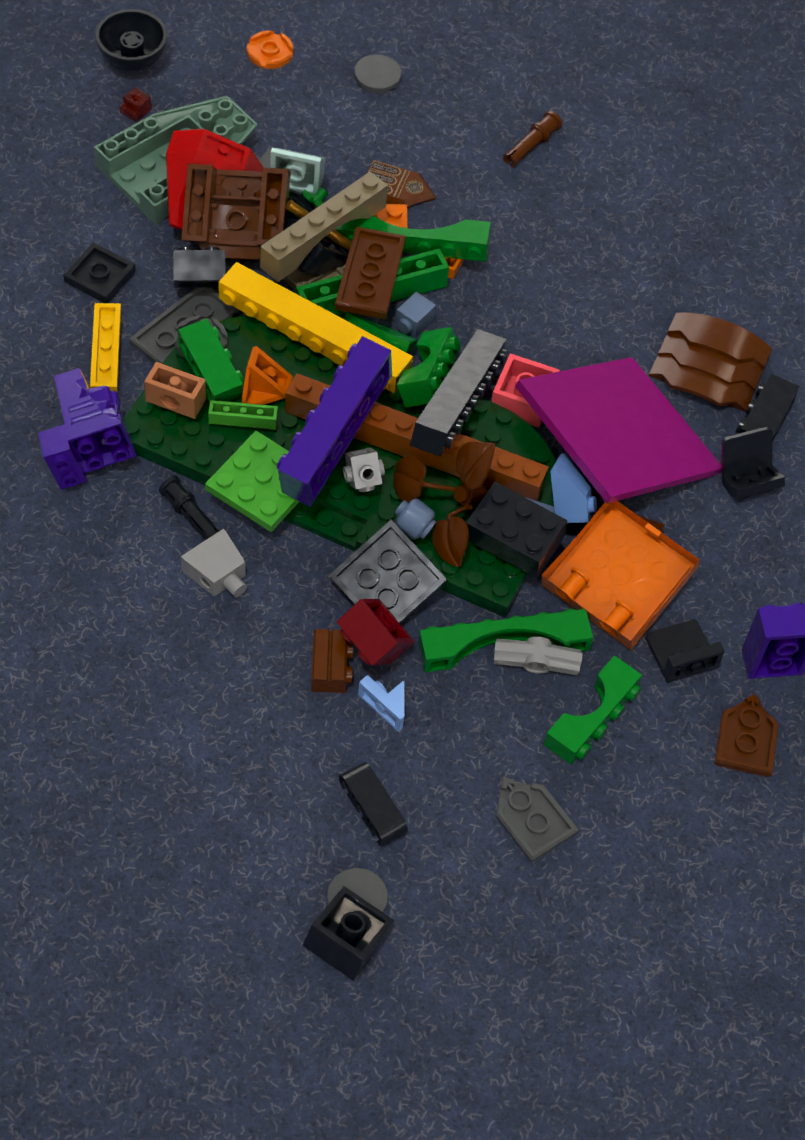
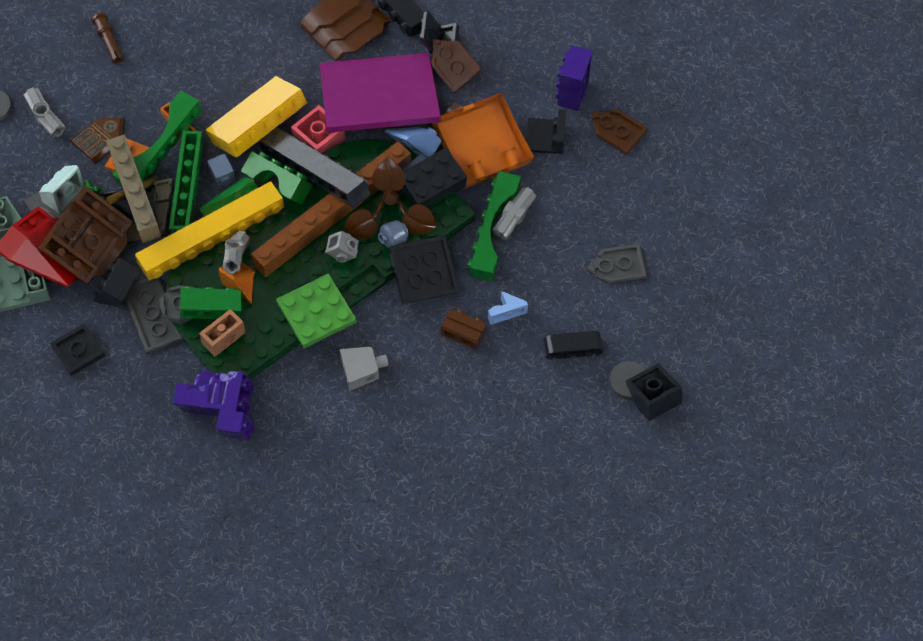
camera: 60 degrees left, 5 degrees up
(106, 345) = (145, 368): yellow plate -> none
(184, 503) = (302, 367): black pin -> none
(243, 414) = (258, 302): bright green piece -> none
(290, 356) = (234, 250): none -> light grey piece
(335, 421) = (312, 242): dark purple brick -> none
(370, 272) = (183, 178): reddish brown tile -> none
(374, 632) = (463, 291): dark red brick -> none
(393, 118) = (48, 119): none -> light grey piece
(507, 316) = (256, 116): none -> yellow brick
(573, 734) = (555, 181): green arch -> none
(719, 498) = (453, 64): none -> reddish brown tile

